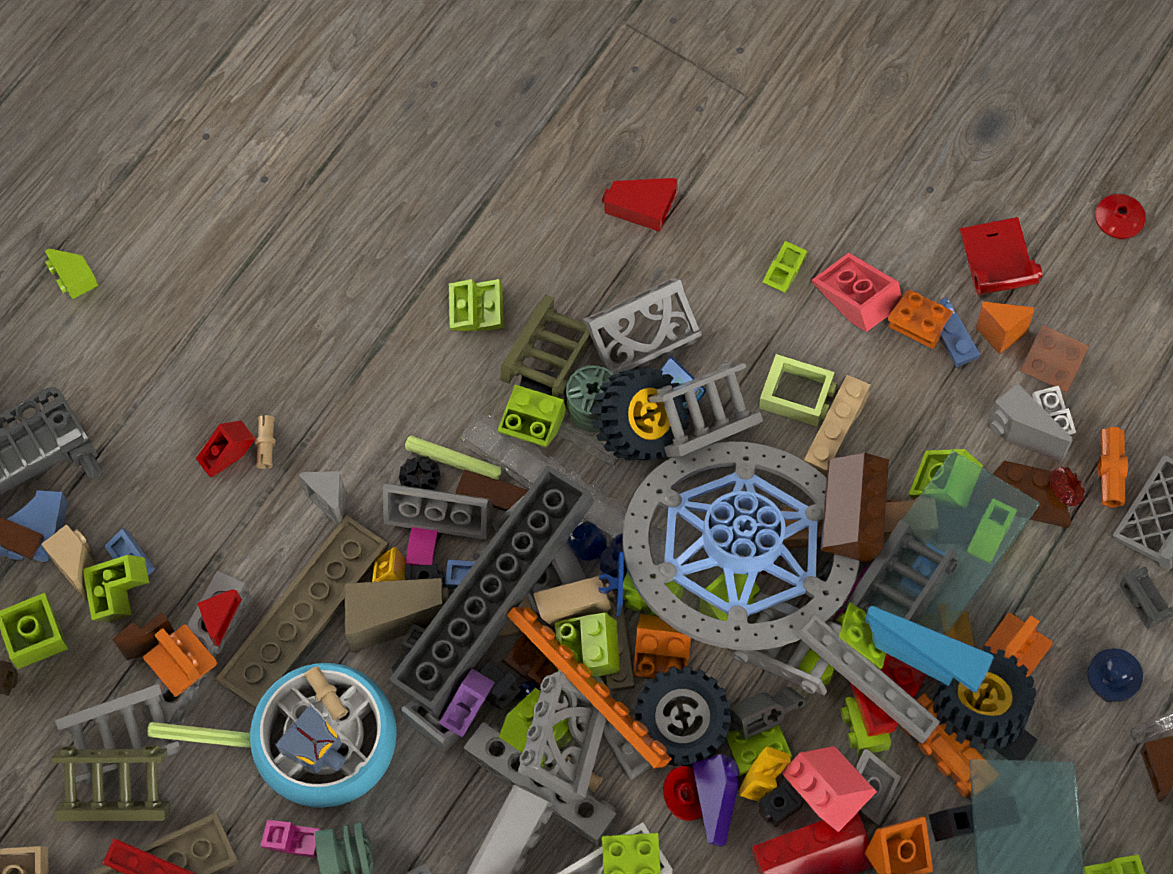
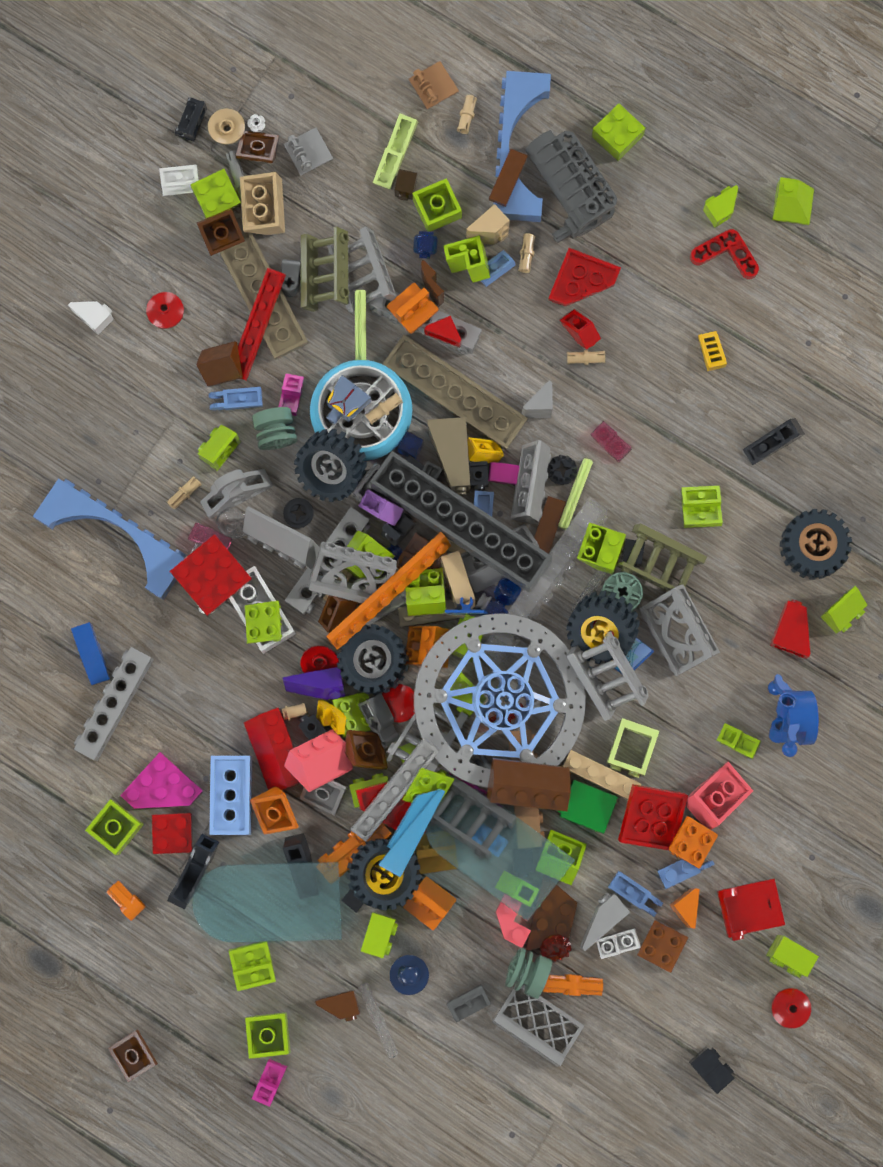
camera: 85 degrees right, 15 degrees up
(73, 191) = (793, 201): none -> lime slope
(86, 649) = (425, 244): none -> clear blue head
(104, 832) = (292, 269): none -> dark grey piece
(111, 516) = (526, 253): none -> tan pin
(128, 264) = (731, 247): none -> red beam
(153, 446) = (582, 277): none -> red plate
(277, 294) = (722, 360): none -> yellow slope
(377, 667) = (410, 445): none -> clear blue brick
(384, 414) = (610, 441): none -> clear pink slope
(393, 217) = (774, 441): none -> black slope
(423, 774) = (321, 474): none -> black wheel
(460, 817) = (293, 505): none -> black gear
(531, 190) = (795, 540): none -> black wheel
(600, 569) = (483, 601): none -> white bush
(615, 771) = (335, 611): none -> reddish brown slope
(616, 141) = (847, 608): none -> lime slope
(741, 682) = (400, 702): none -> red dish
(755, 829) = (294, 711): none -> tan pin
(761, 191) = (796, 717): none -> blue piece
(810, 727) = (365, 750): none -> reddish brown slope
(881, 436) = (589, 807): none -> green brick
(890, 362) = (652, 817): none -> red plate
(986, 392) = (633, 892): none -> medium blue hinge
(1043, 544) = (511, 930): none -> coral brick
(1058, 206) = (791, 955): none -> lime brick
(1066, 708) = (378, 935): none -> lime brick
(1103, 515) = (530, 973): none -> sand green wheel

